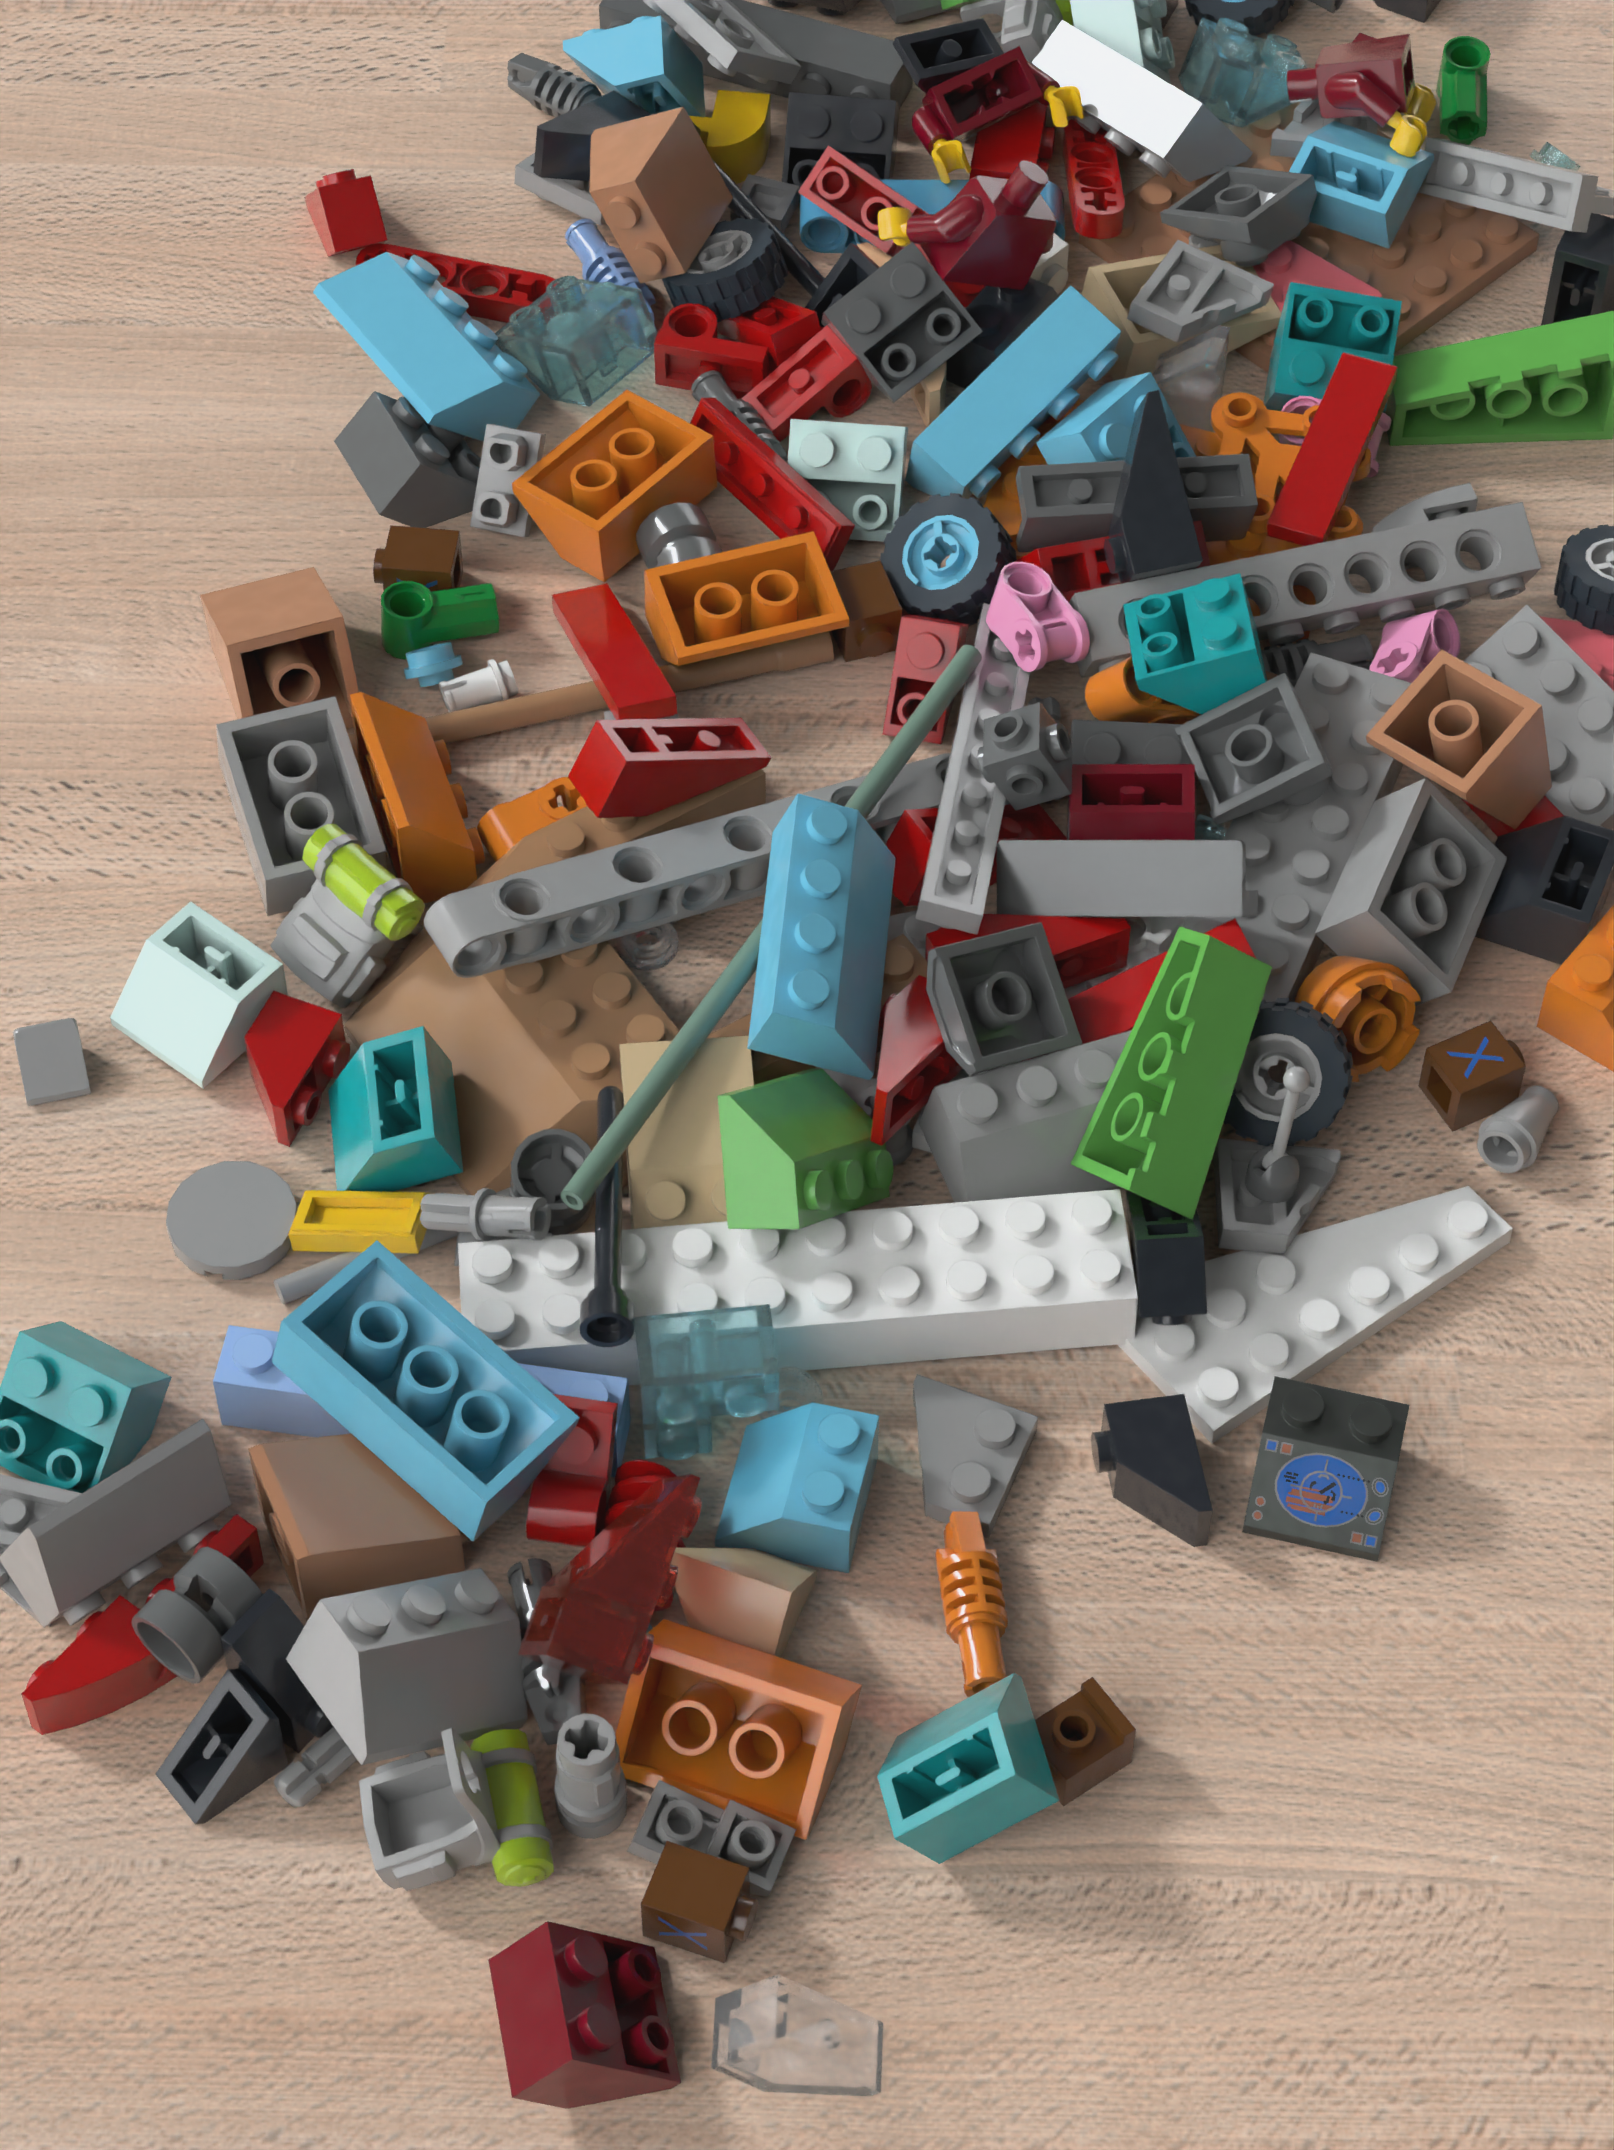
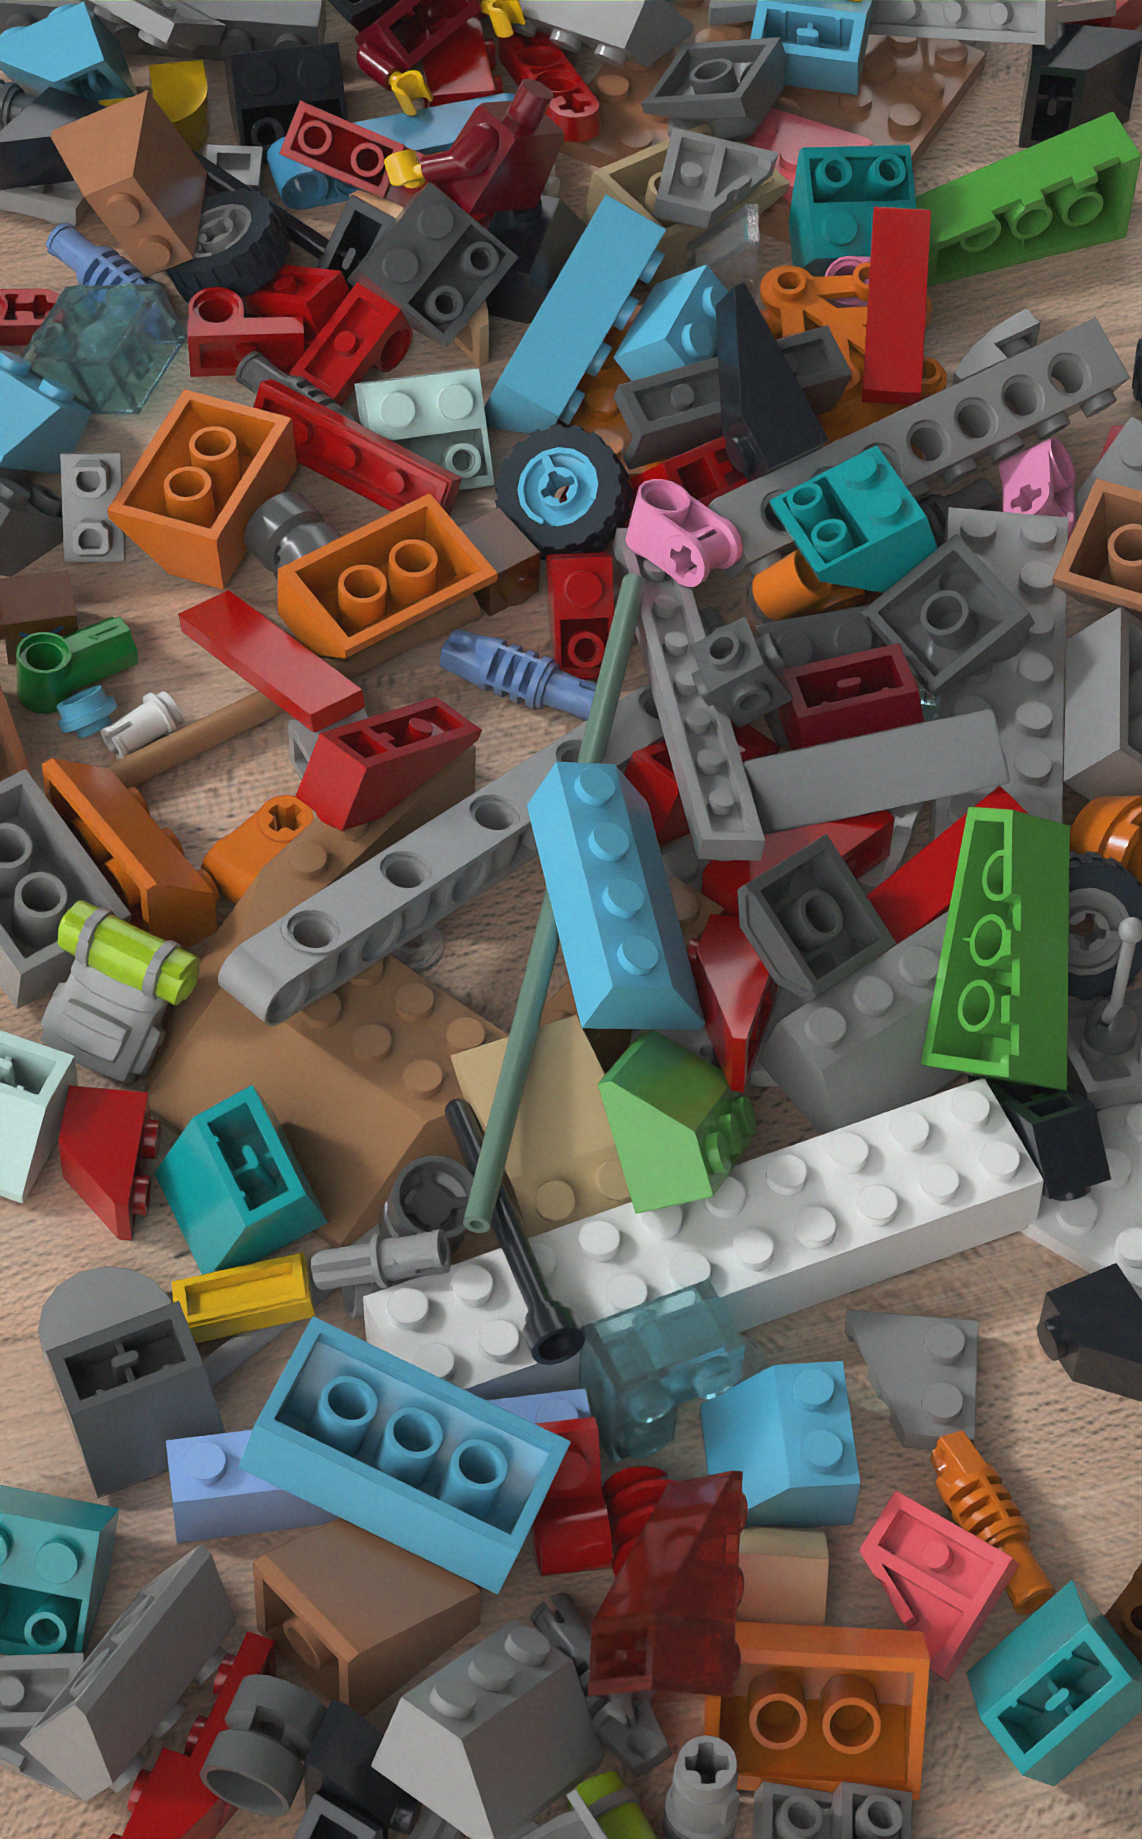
camera: 20 degrees left, 0 degrees up
(216, 1273) = (132, 1393): none -> dark grey slope
(837, 713) = (522, 675): none -> medium blue hinge
(898, 1642) = (936, 1577): none -> coral wing

